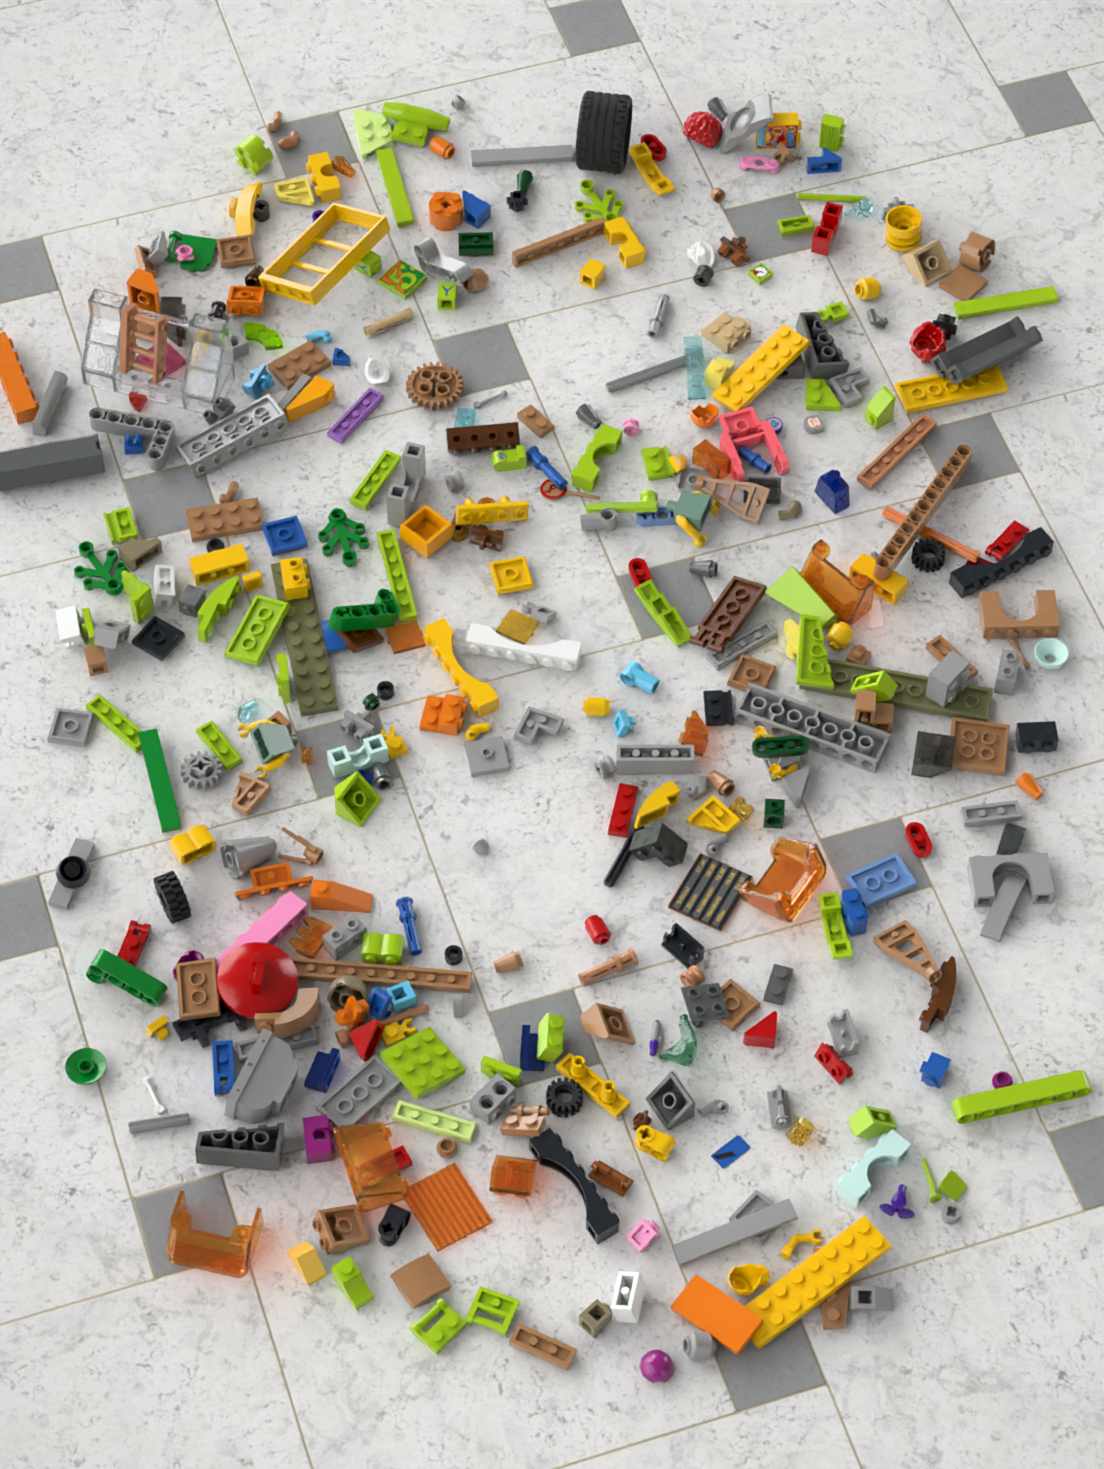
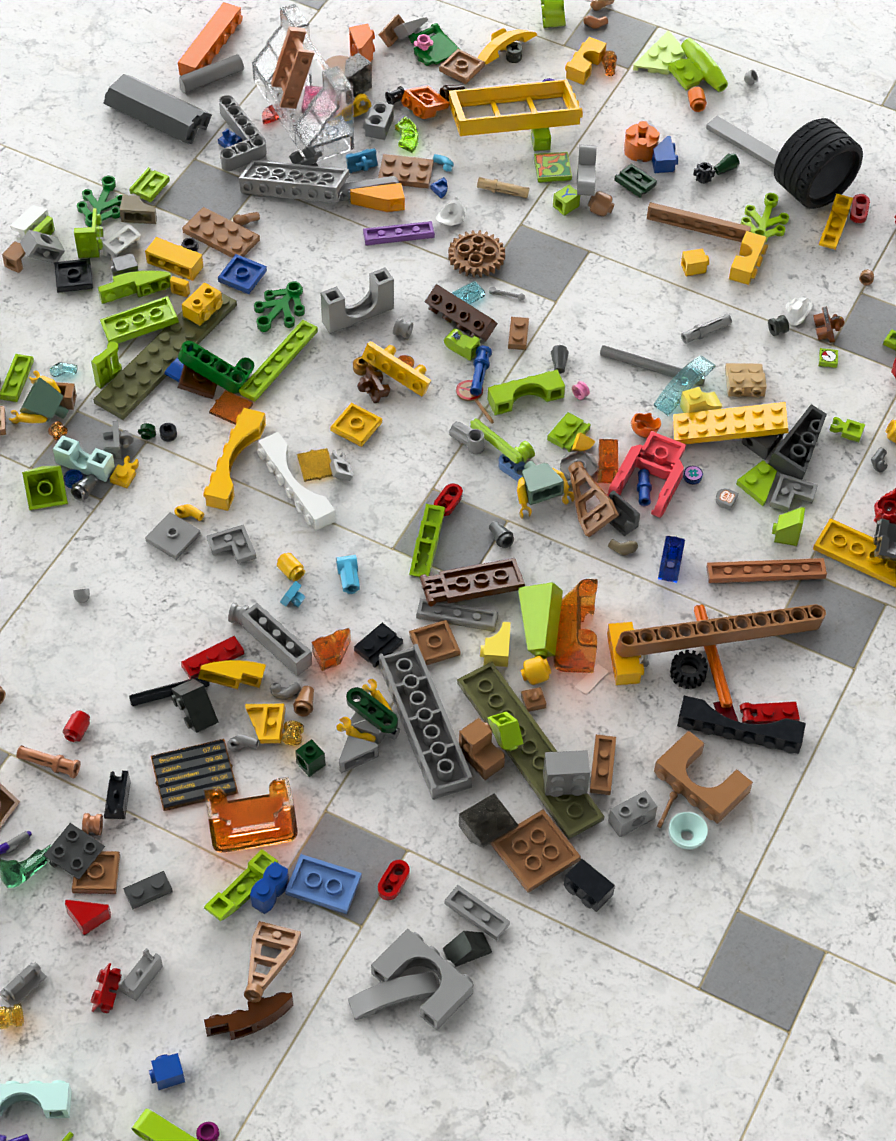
camera: 45 degrees right, 0 degrees up
(295, 191) = (554, 56): light yellow wing -> none
(375, 480) = (346, 285): lime plate -> none
(394, 187) = (629, 102): lime tile -> none
(426, 531) = (334, 345): light orange piece -> none
(443, 714) = (182, 481): orange plate -> none
(812, 660) = (487, 664): lime wing -> none
(872, 1122) = (69, 1064): lime slope -> none
(1029, 785) = (536, 918): orange cone -> none

